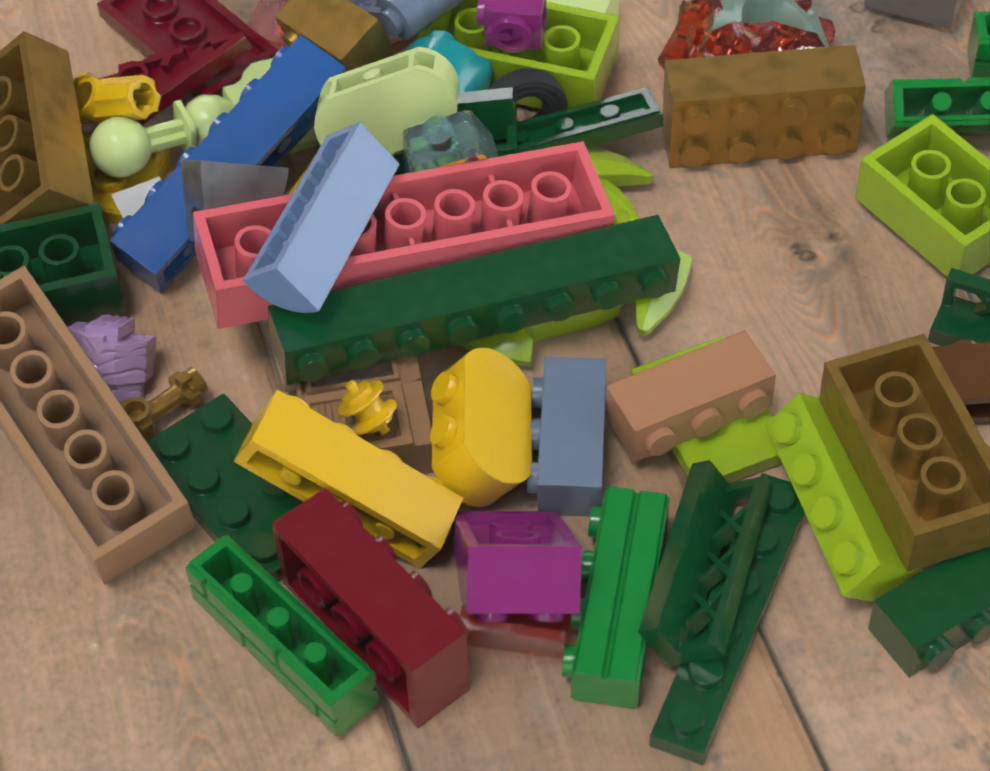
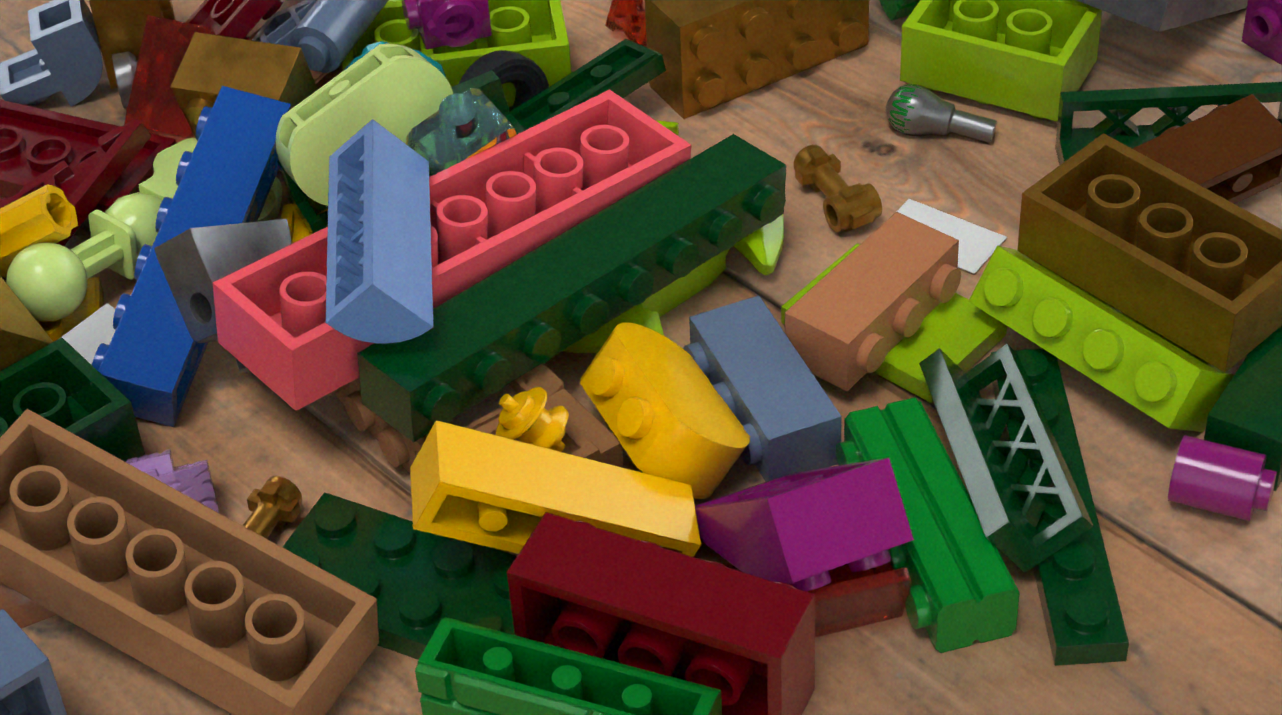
camera: 25 degrees left, 10 degrees down
(739, 300) = (845, 205): none -> pearl gold bar
(795, 349) = (975, 242): none -> white sticker
(848, 234) = (920, 112): none -> flat silver piece
(860, 653) = (1221, 479): none -> magenta brick

